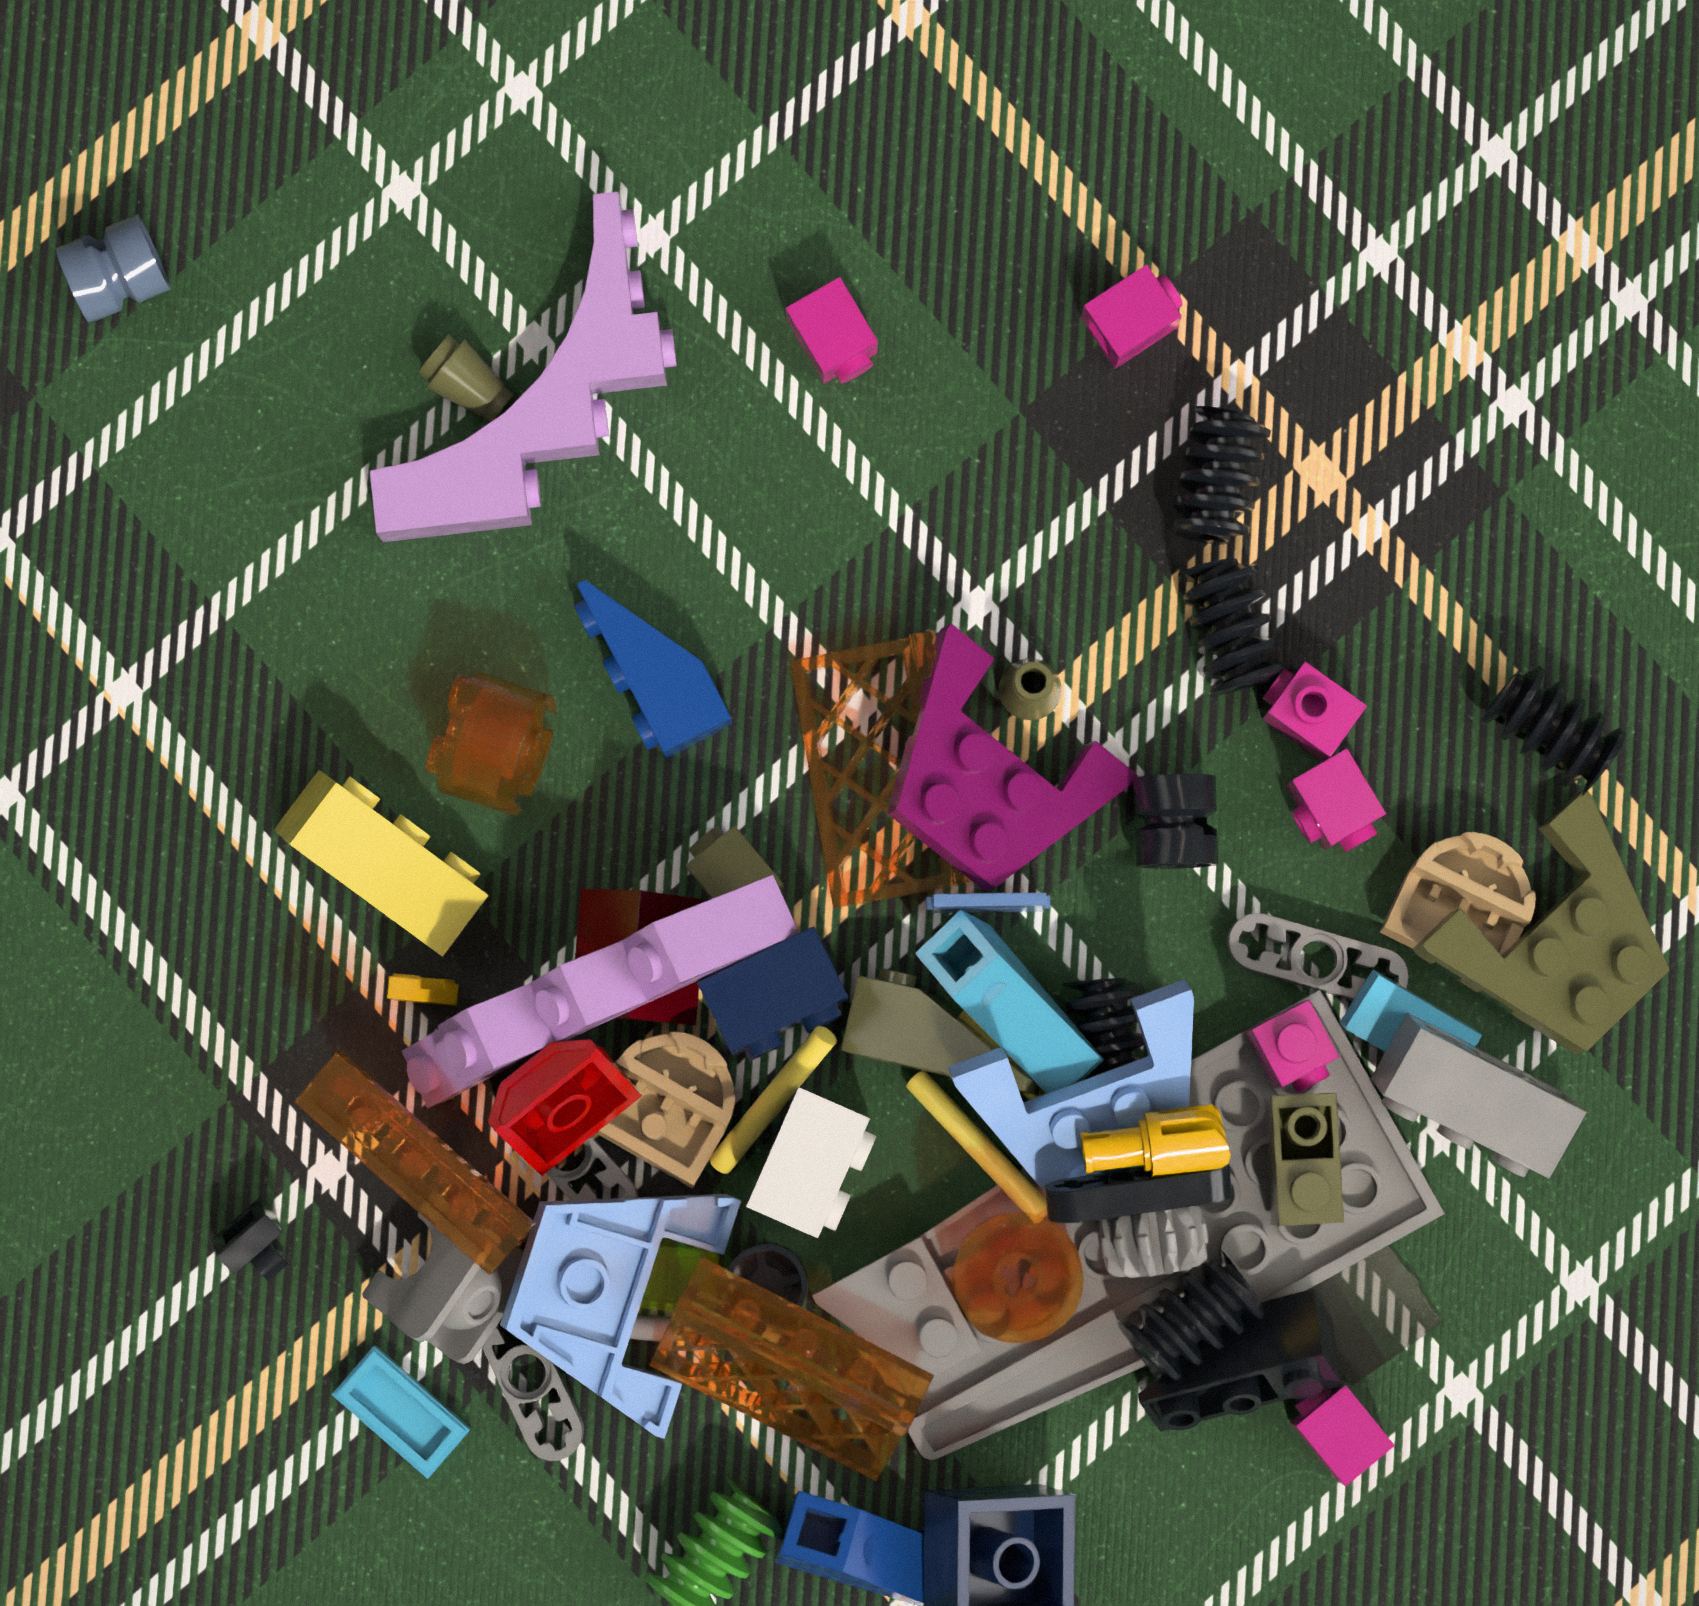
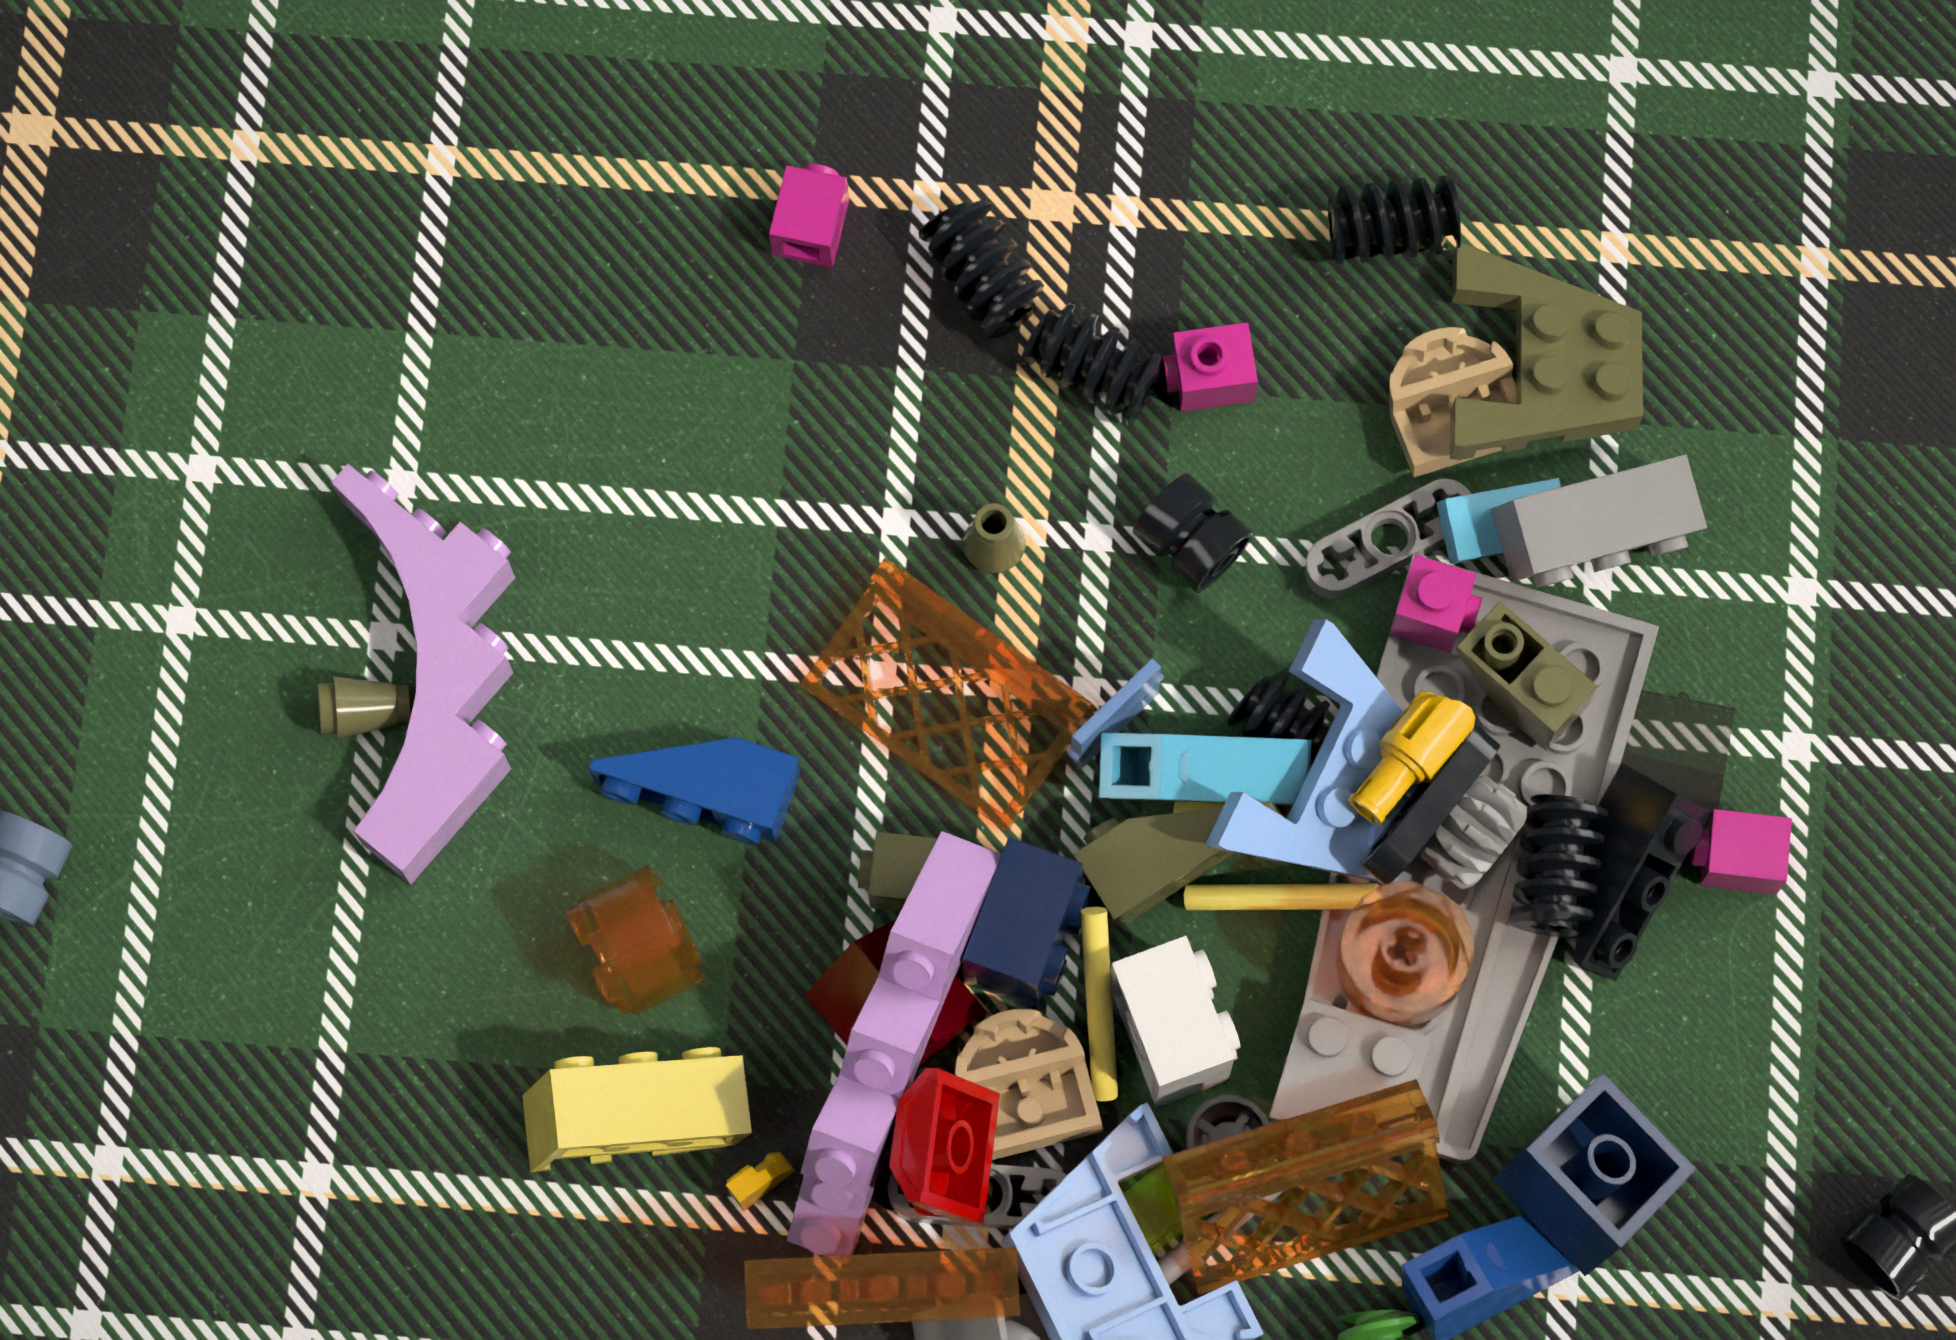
camera: 40 degrees left, 10 degrees down
(833, 332) = (603, 423): dark pink brick -> none
(976, 796) = (1027, 643): magenta wing -> none
(1335, 803) = (1292, 415): dark pink brick -> none

